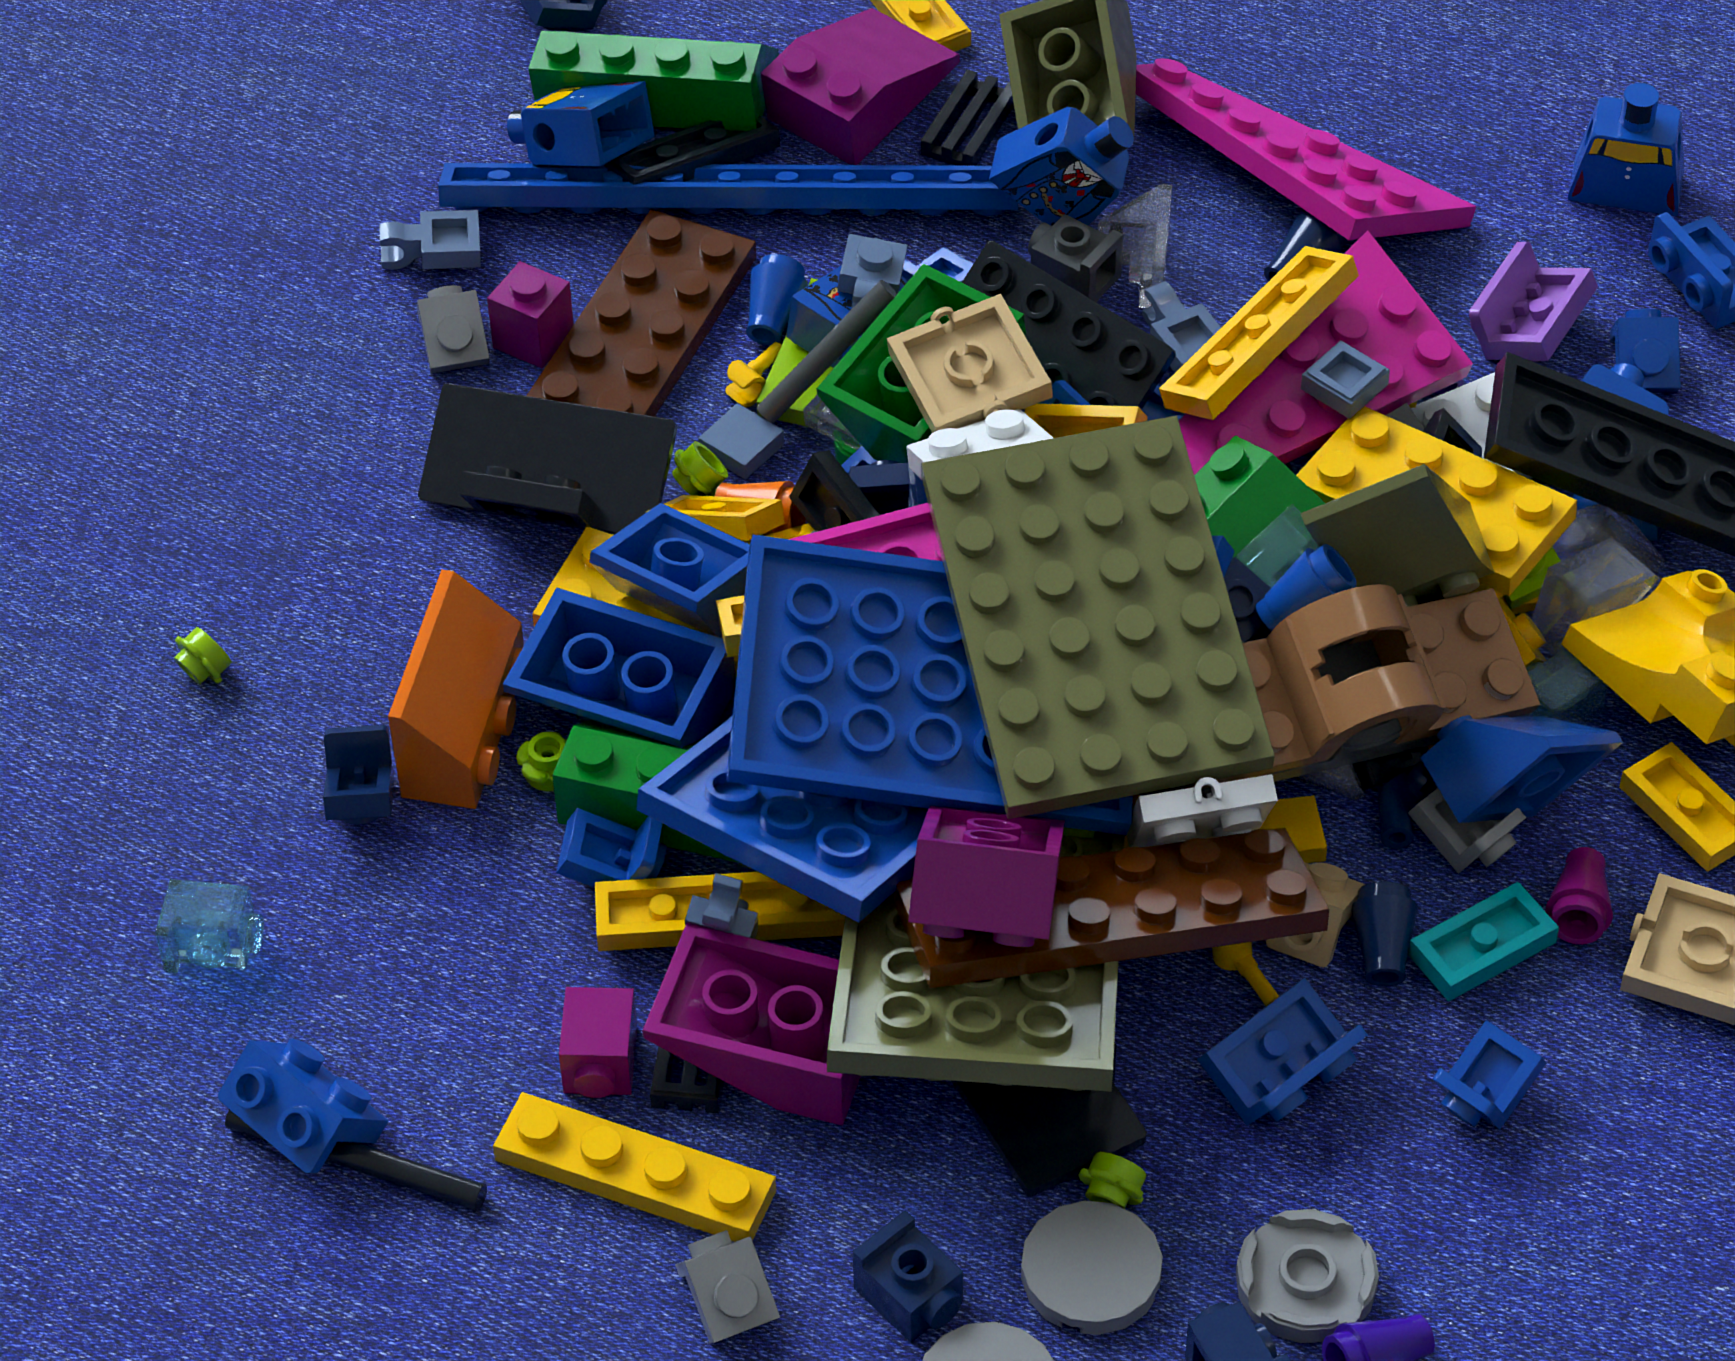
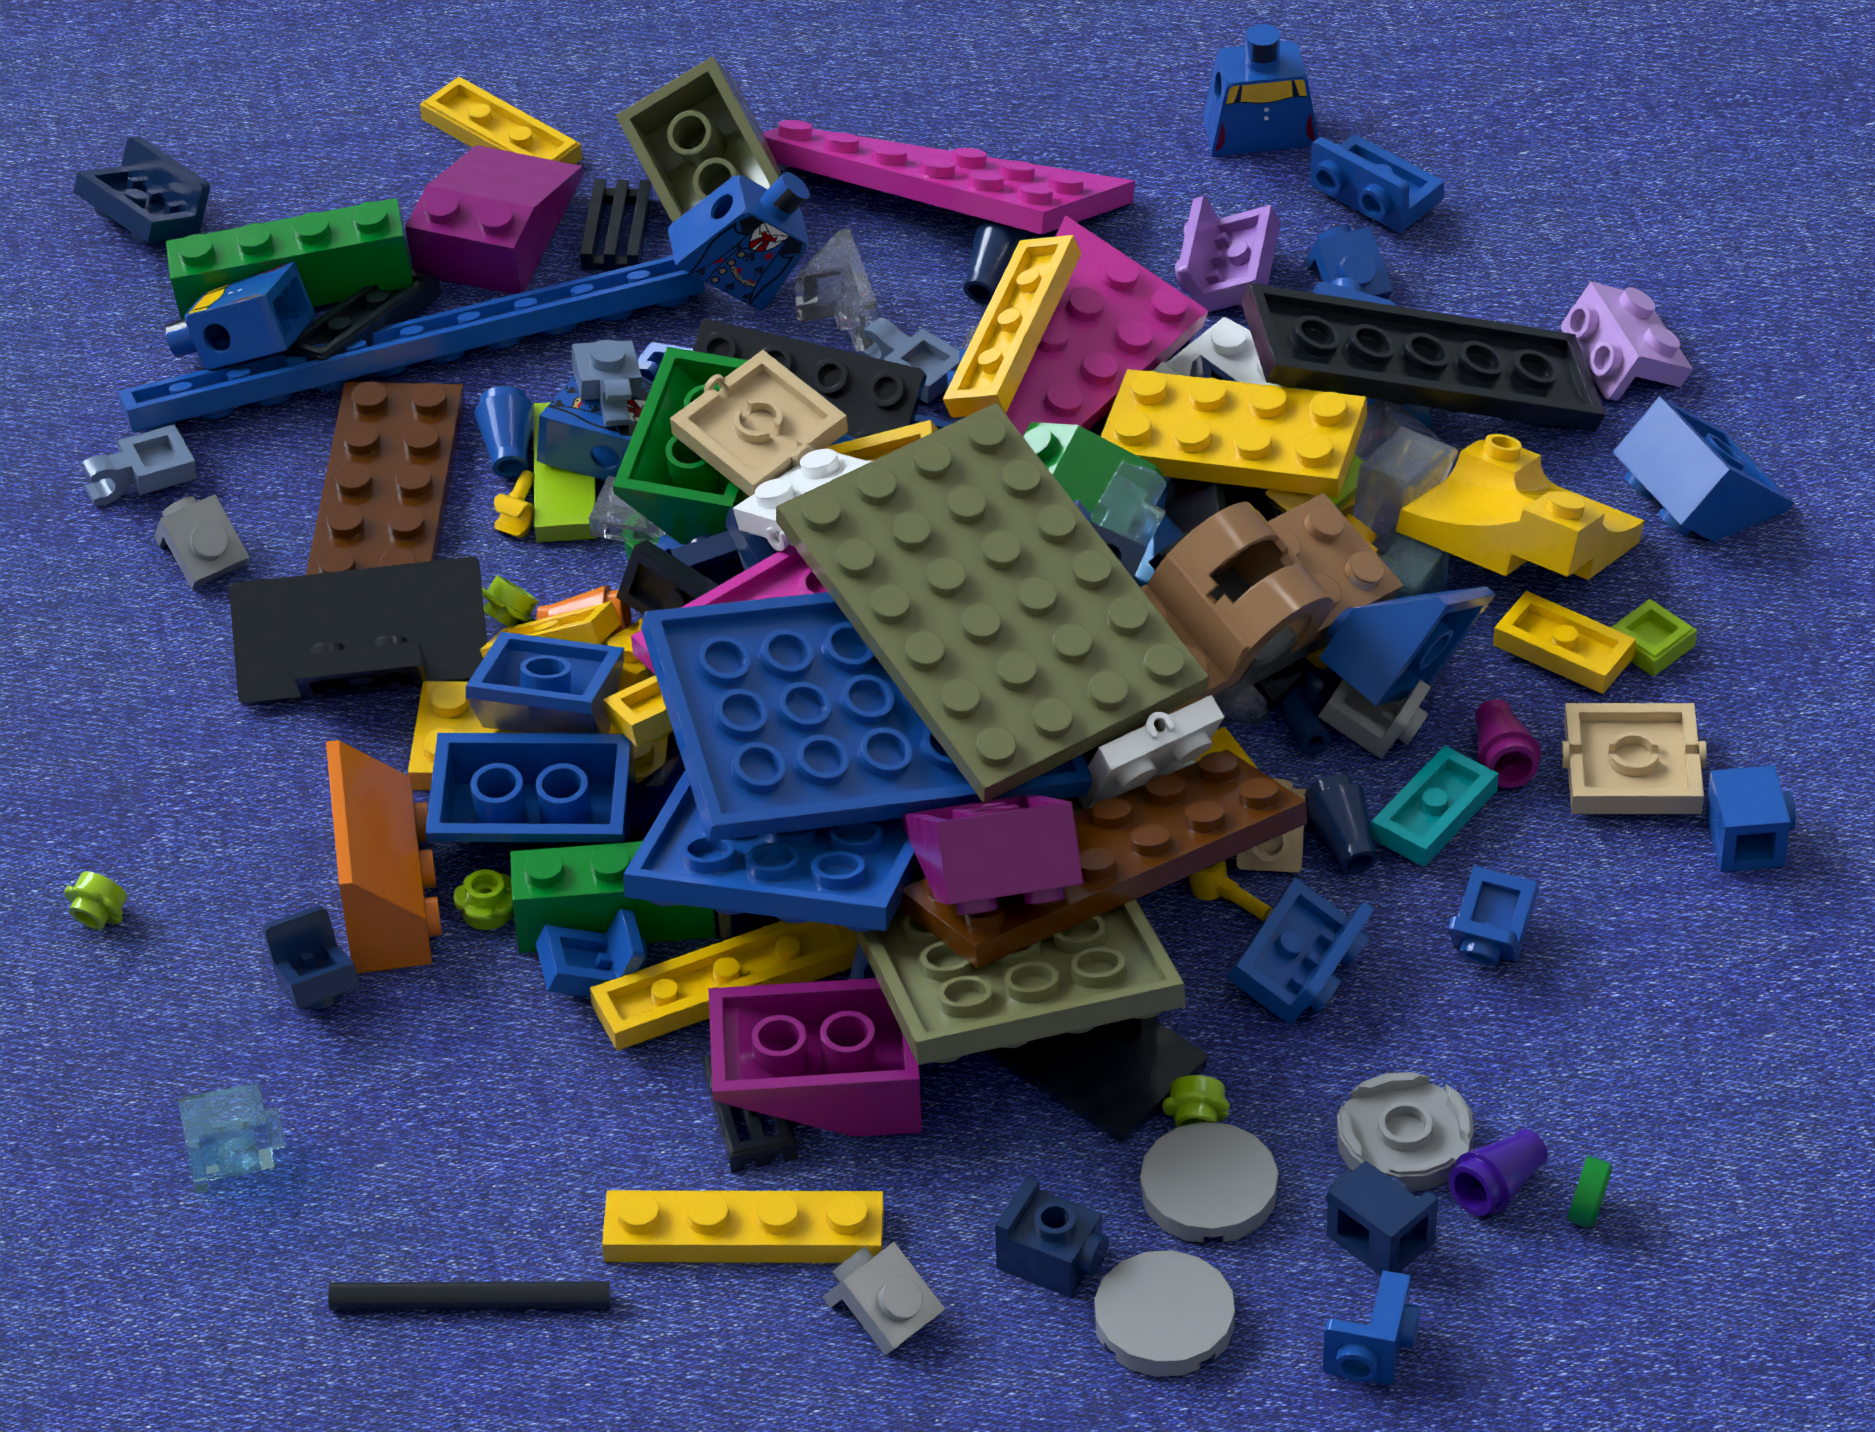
camera: 20 degrees left, 5 degrees down
(298, 1102) = (395, 1265): blue bracket -> none
(530, 314) = (275, 505): magenta brick -> none
(598, 1041) = (660, 1124): magenta brick -> none
(724, 909) = (737, 966): sand blue plate -> none
(742, 440) = (536, 565): sand blue tile -> none
(826, 352) = (596, 457): dark grey bar -> none
(1078, 255) = (783, 311): dark grey brick -> none
(1307, 580) = (1168, 523): blue cone -> none
(1345, 379) = (1106, 349): sand blue tile -> none
(1406, 535) = (1238, 456): olive slope -> none

